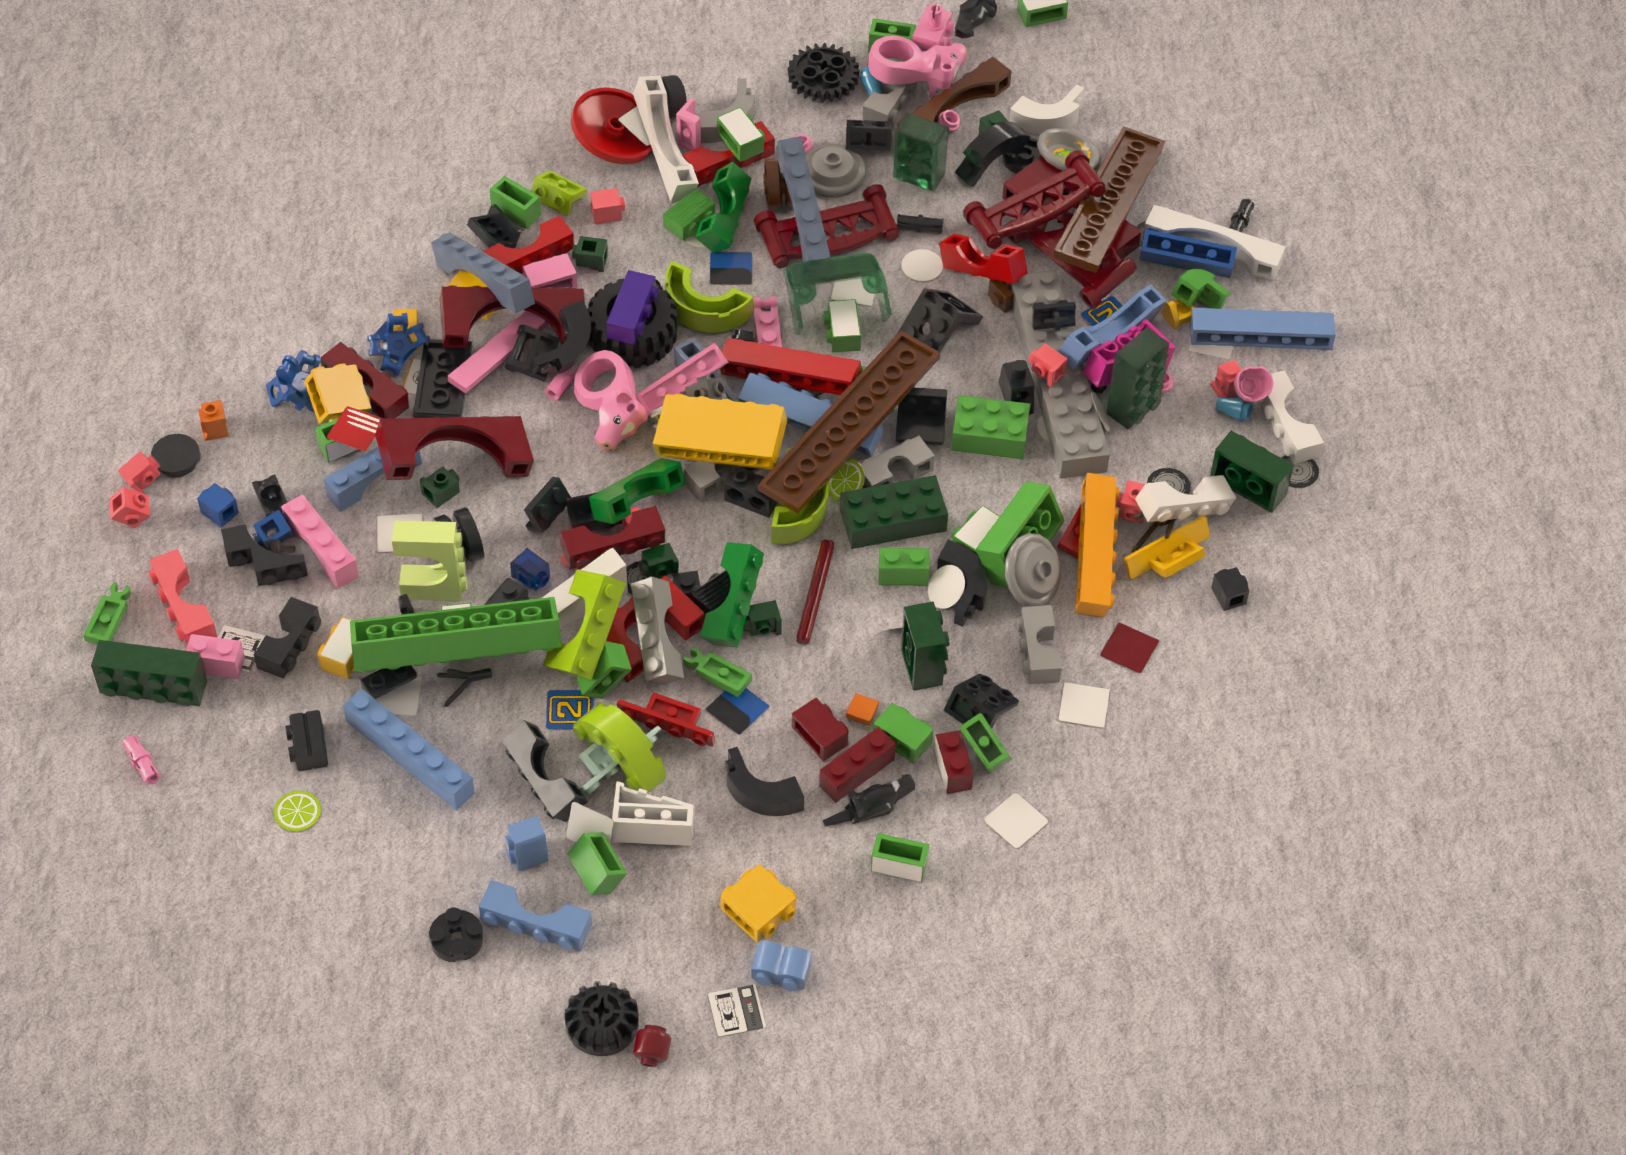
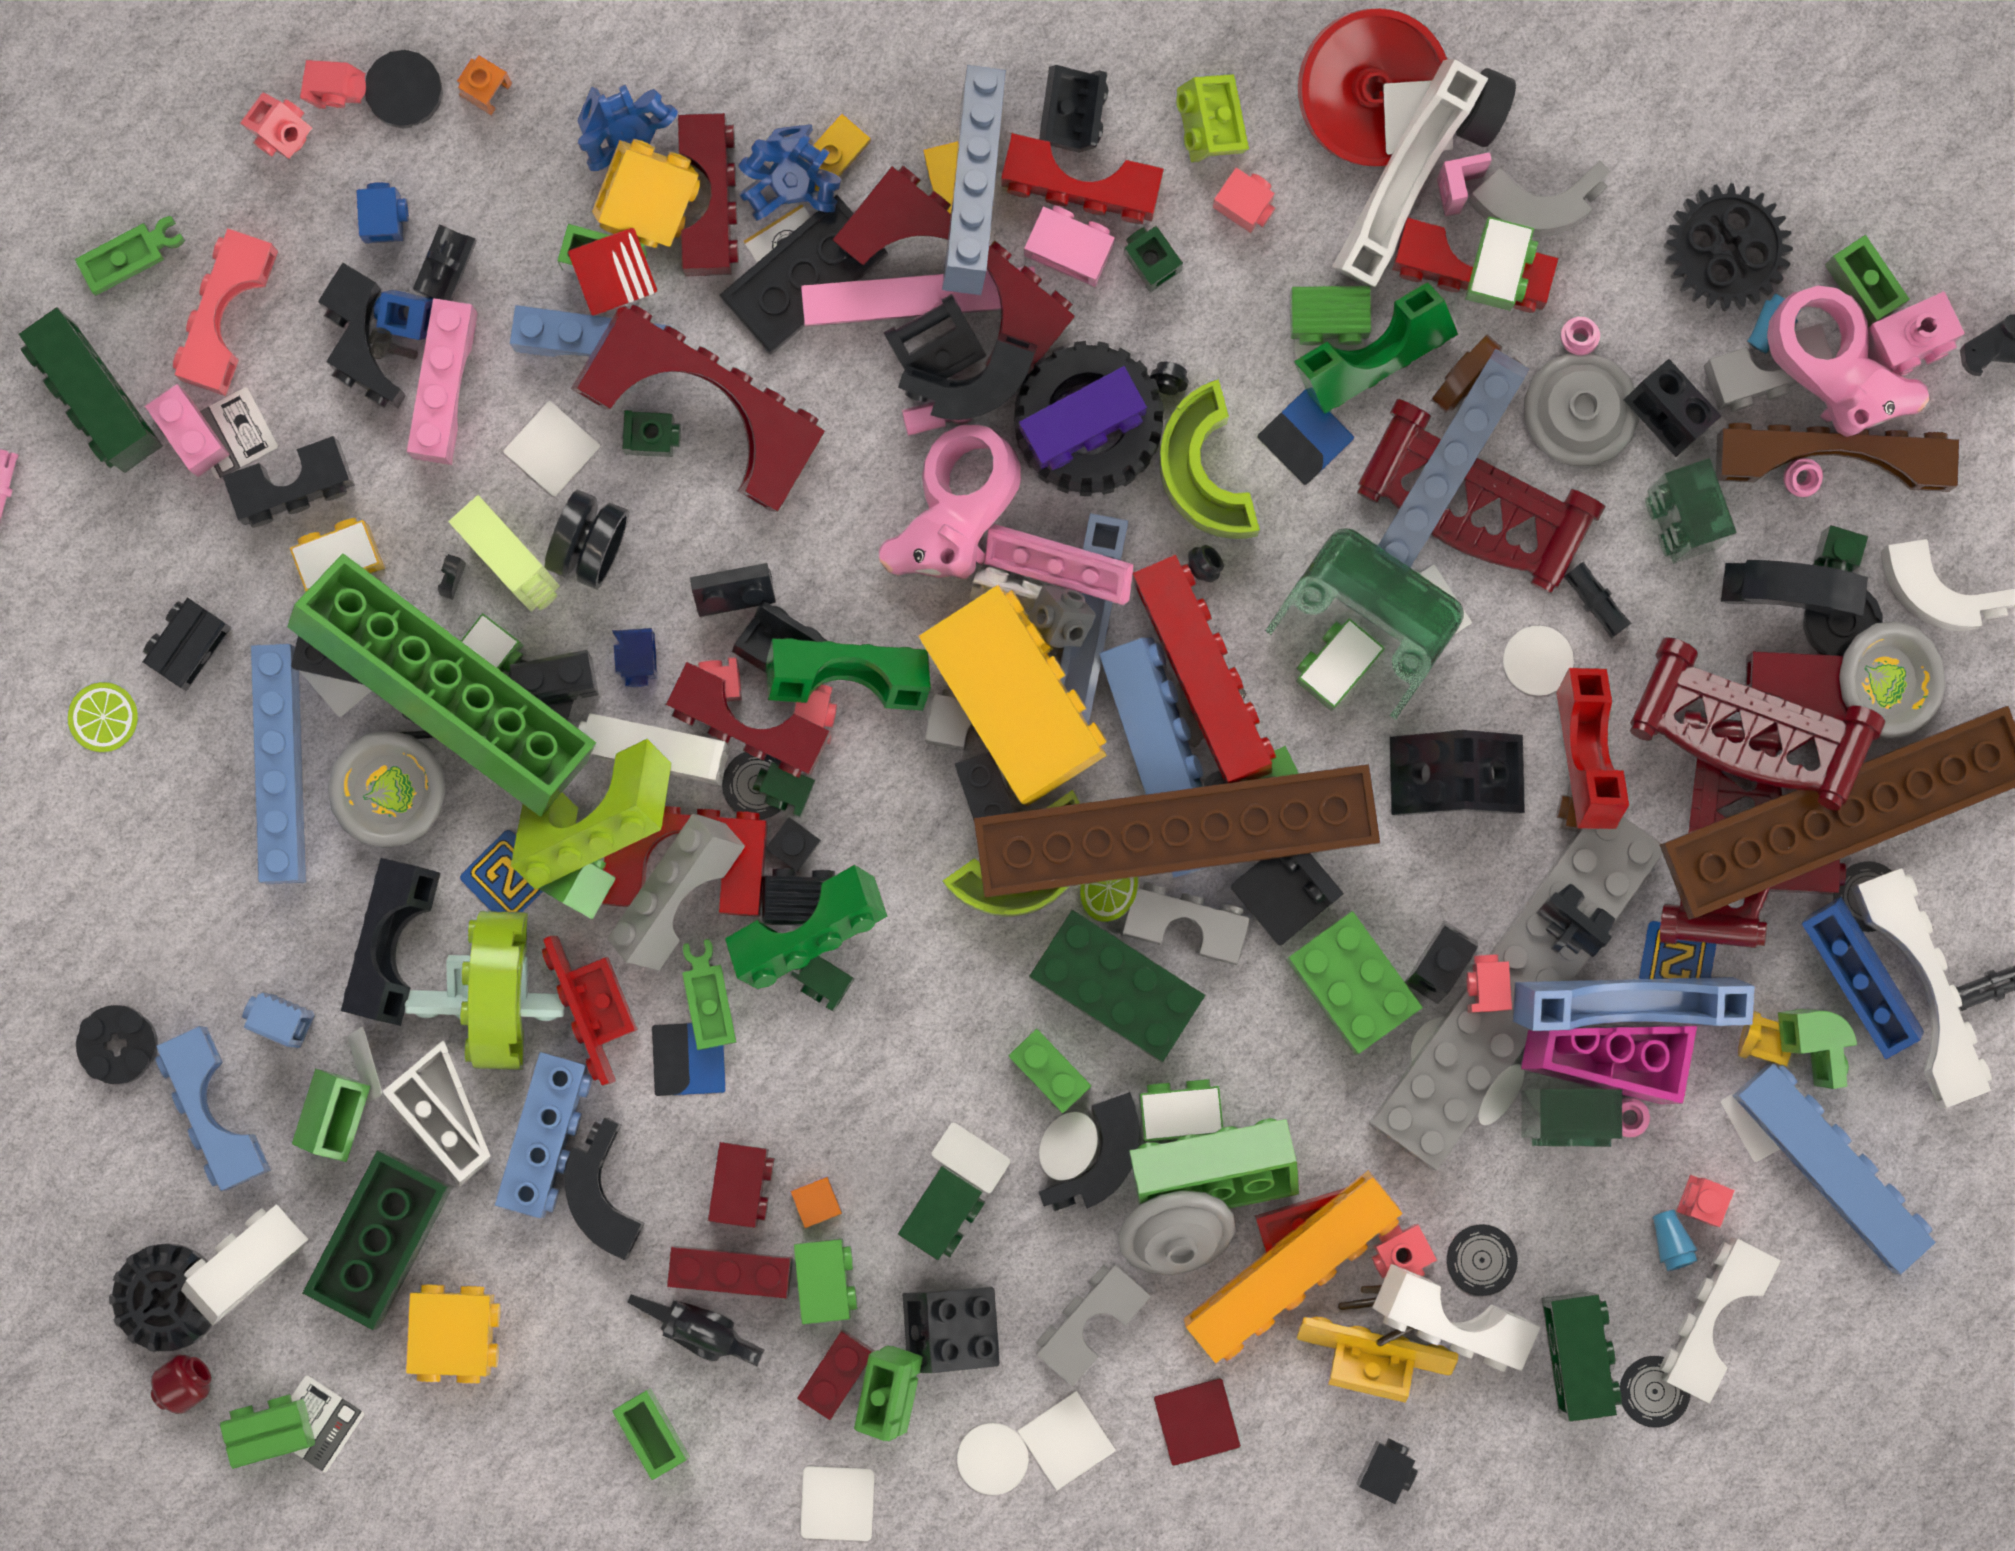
camera: 50 degrees right, 30 degrees up
(473, 713) = (386, 789): none -> light grey piece
(516, 201) = (1135, 91): bright green brick -> none
(624, 958) = (243, 1263): none -> white brick
(679, 894) = (377, 1239): none -> dark green brick
(707, 789) = (542, 1136): none -> medium blue brick
(718, 1027) = (267, 1432): none -> bright green brick
(767, 322) = (1256, 570): bright pink plate -> none
(781, 965) = (403, 1427): medium blue brick -> none
(815, 592) = (924, 998): dark red axle -> none
(1061, 740) = (992, 1459): none -> white sticker
(1253, 384) = (1710, 1251): bright pink hair -> none

